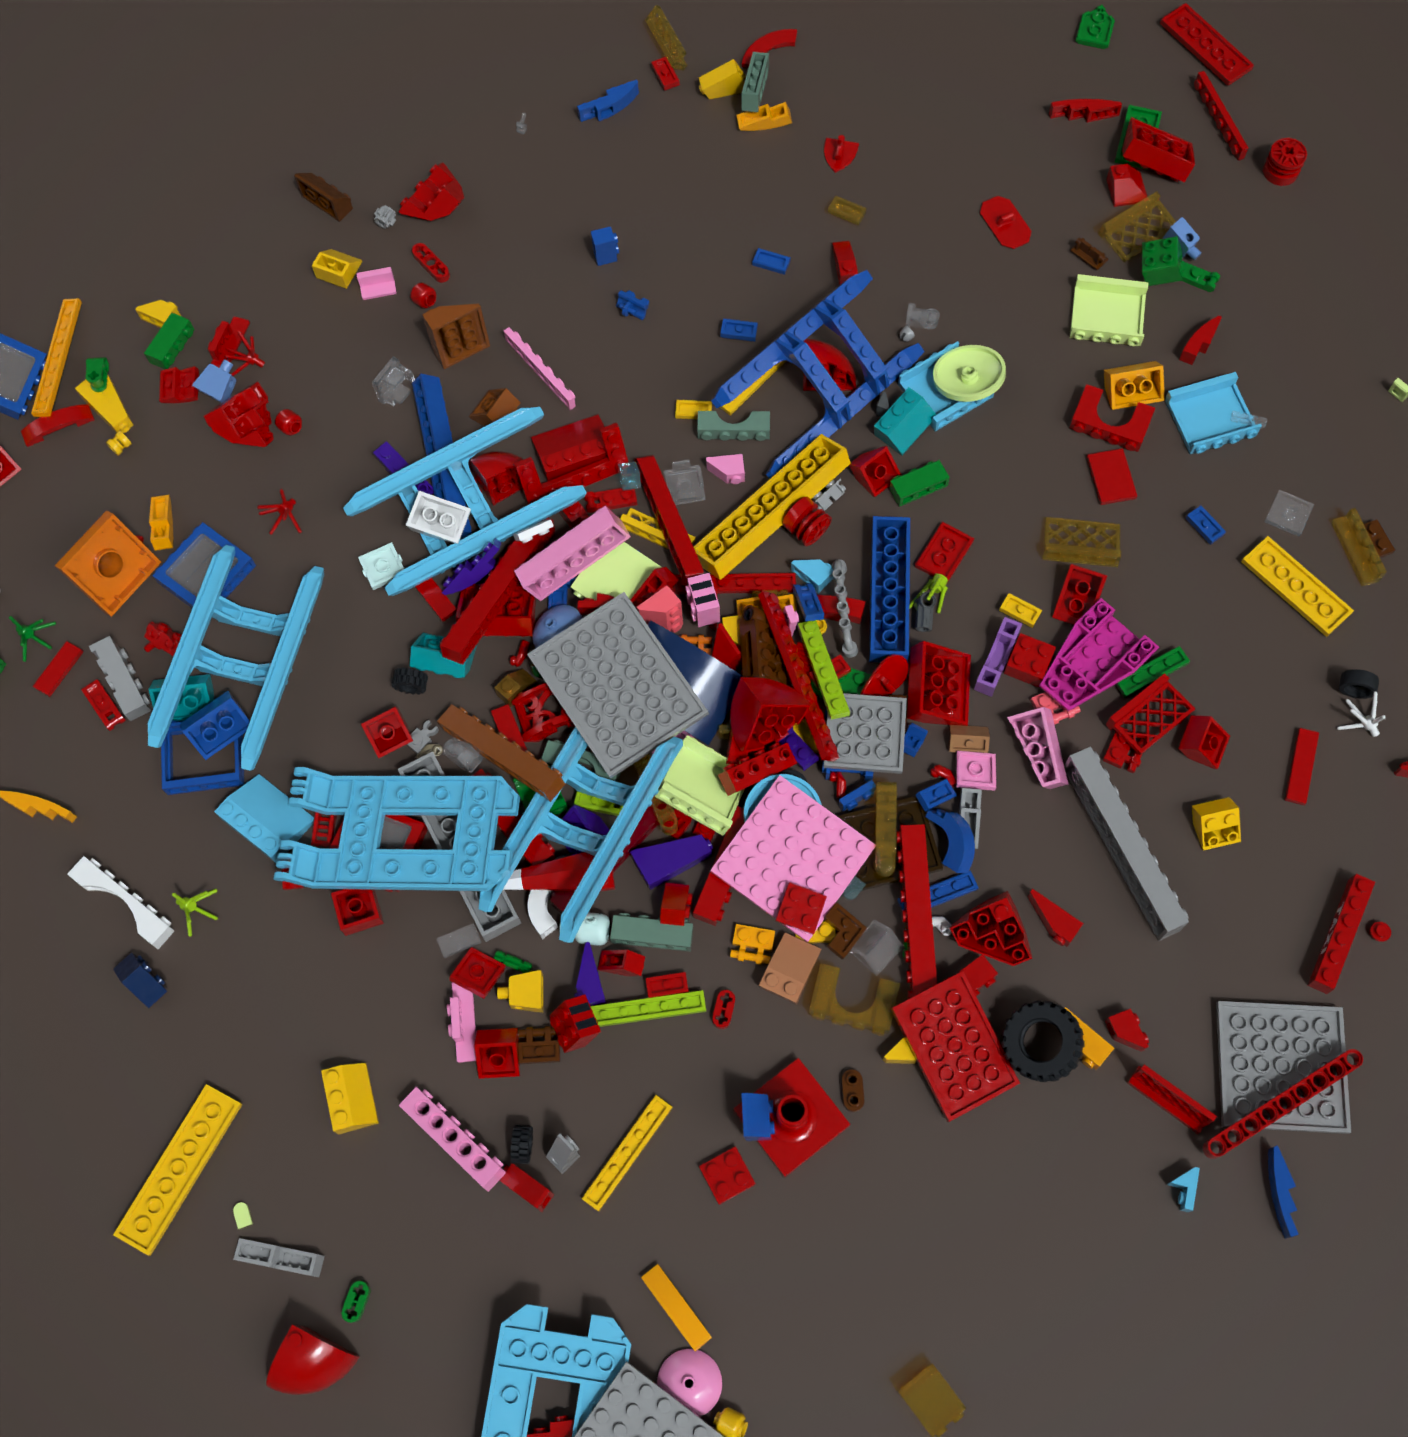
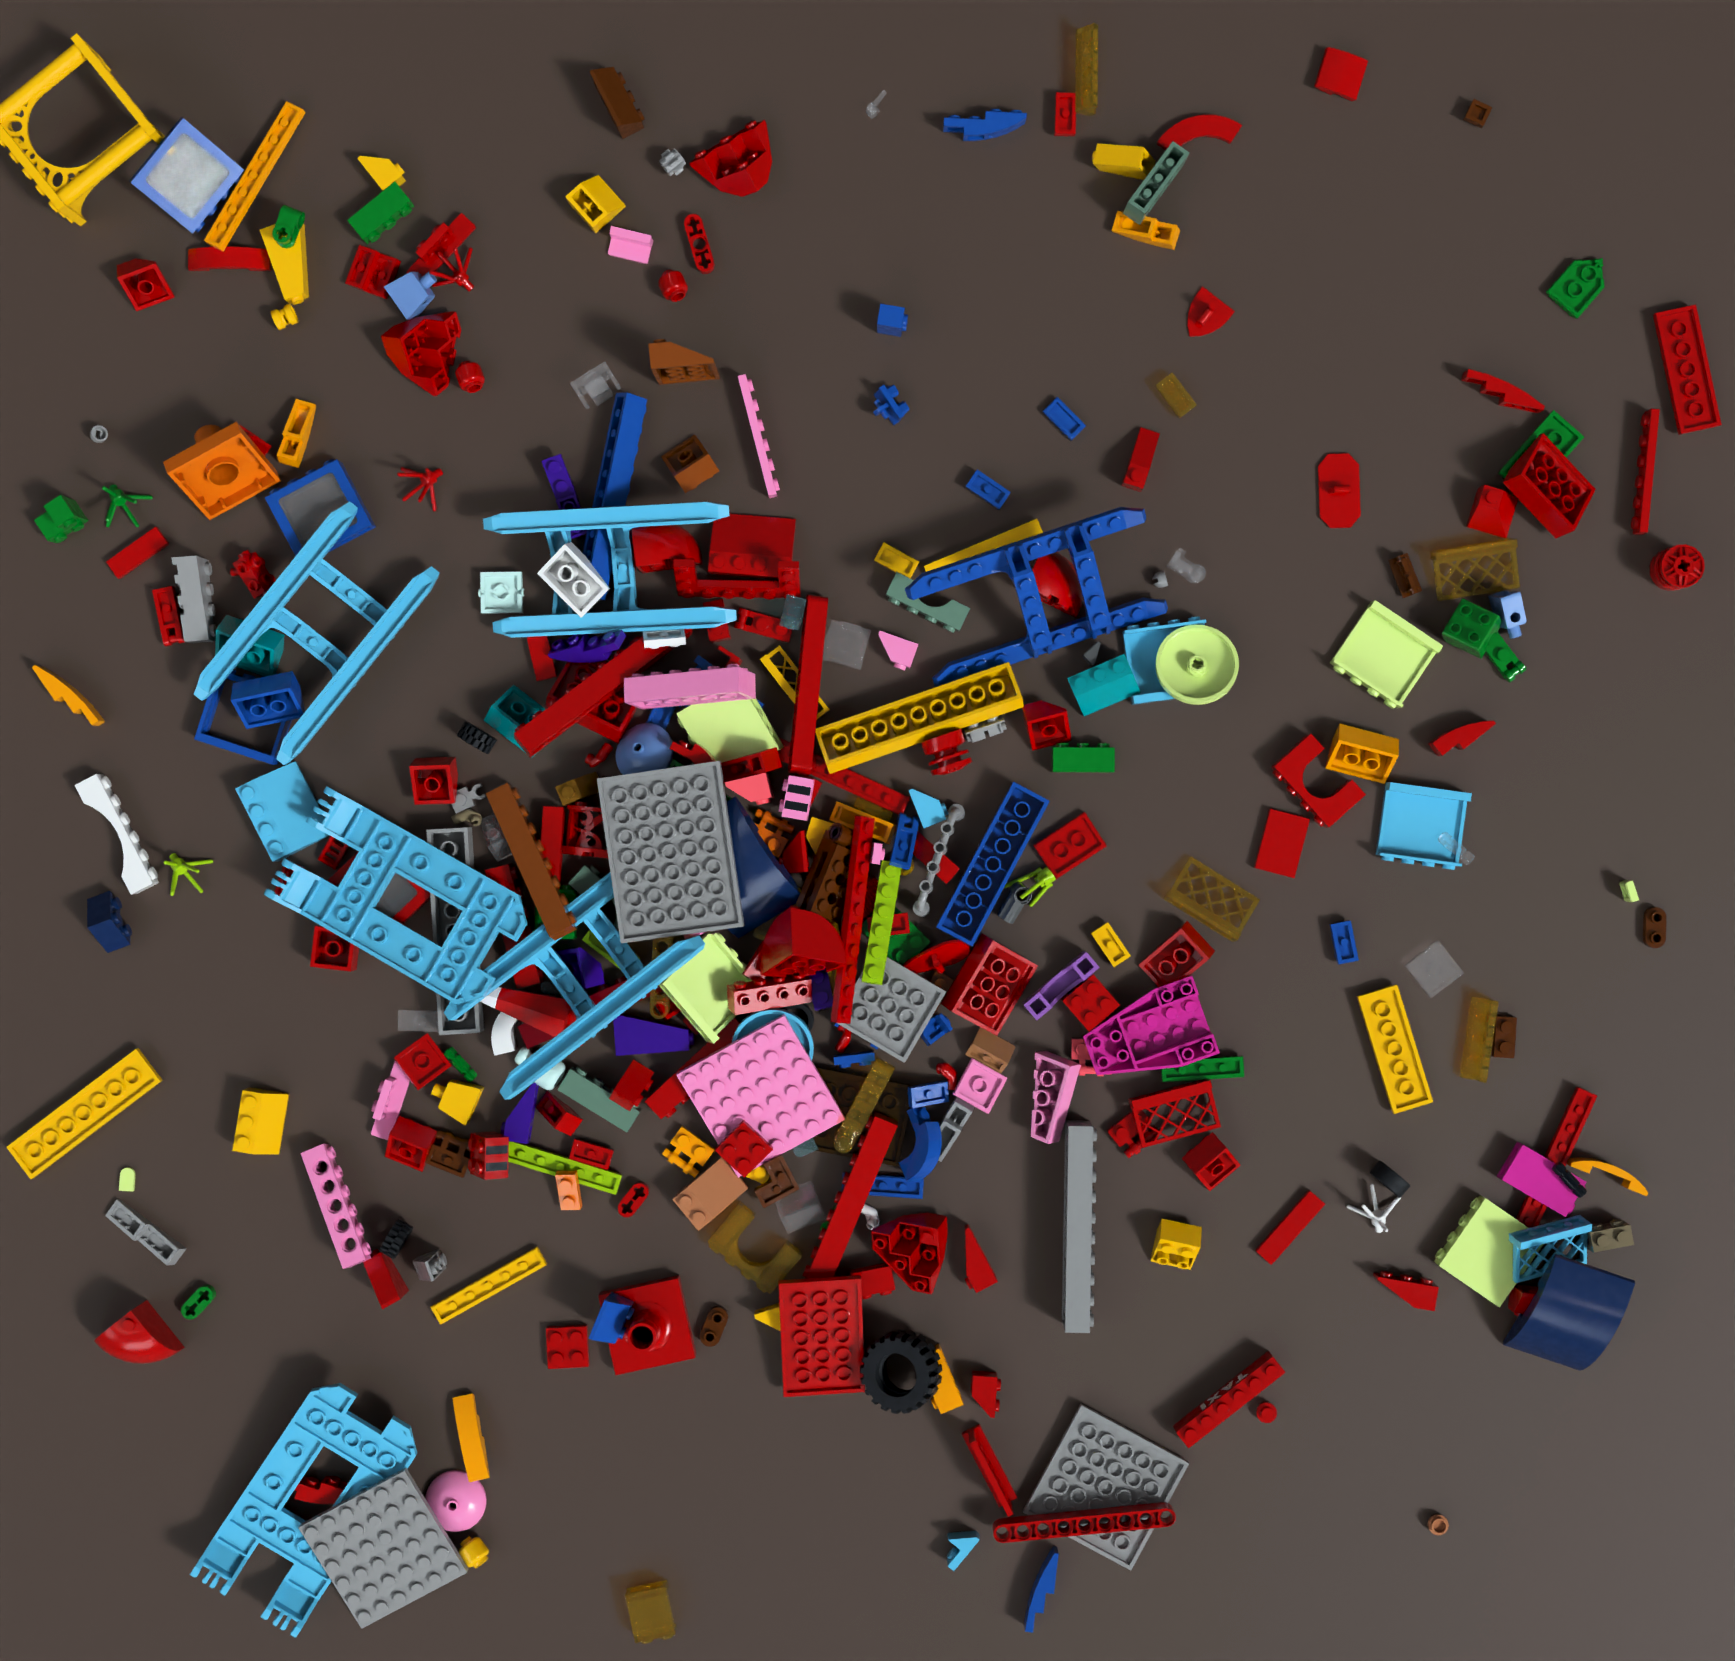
camera: 20 degrees right, 20 degrees up
(661, 1025) = (568, 1190): none -> orange plate

